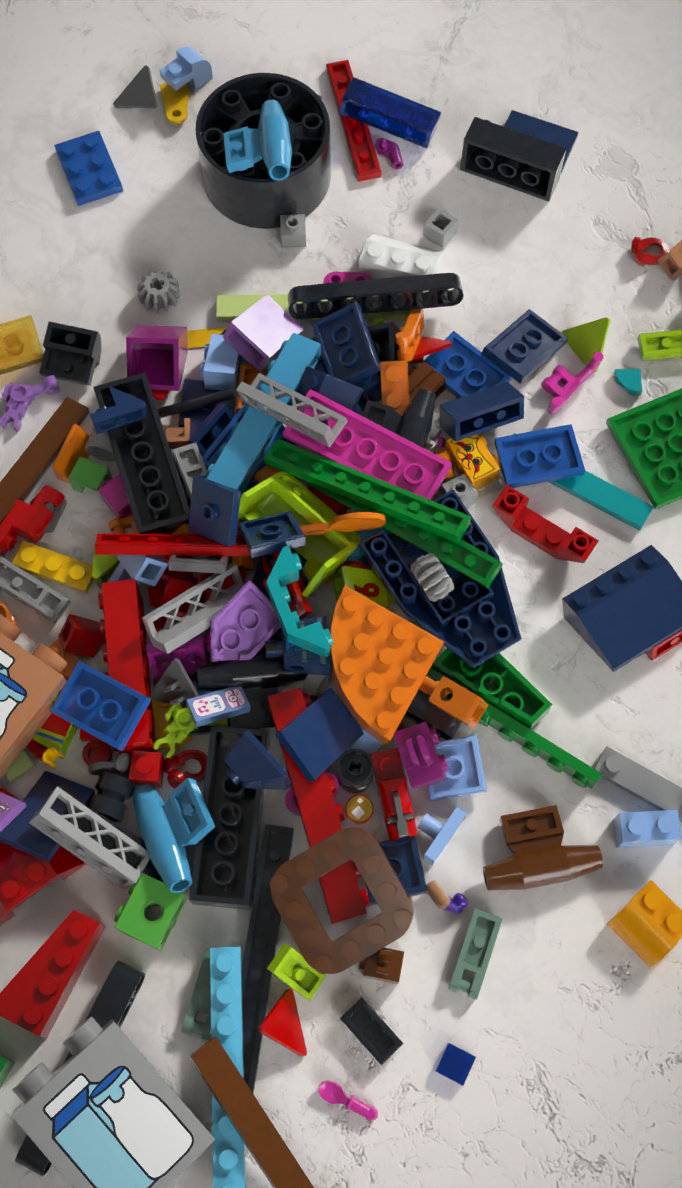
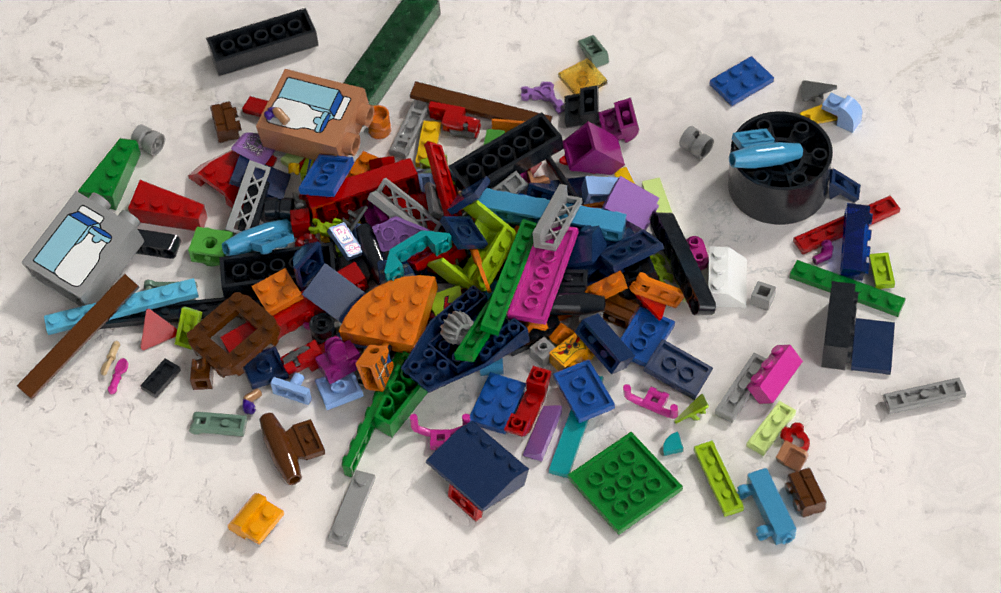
camera: 80 degrees right, 15 degrees down
(111, 312) = (620, 120): none -> magenta brick
(126, 410) = (525, 128): dark blue slope -> none
(158, 290) = (650, 143): light grey gear -> none
(178, 237) = (696, 142): none -> light grey wheel
(285, 820) = (277, 292): none -> orange plate
(293, 230) = (729, 208): light grey plate -> none
(323, 1115) = (111, 357): none -> tan piece
(359, 809) = (299, 340): tile -> none
(440, 100) = (881, 270): none -> lime plate
(443, 146) = (867, 294): none -> green plate
(455, 1064) = (148, 428): clear blue tile -> none
(528, 569) = (496, 402): none -> blue plate
(562, 243) = (774, 374): none -> dark pink brick
(566, 284) = (738, 392): none -> light grey plate
(570, 513) = (543, 432): none -> medium lavender slope
(573, 644) = (435, 433): none -> dark pink piece
(619, 111) = (924, 395): none -> light grey plate
(627, 272) = (771, 428): none -> yellowish green tile
(647, 828) = (319, 505): light blue brick -> none

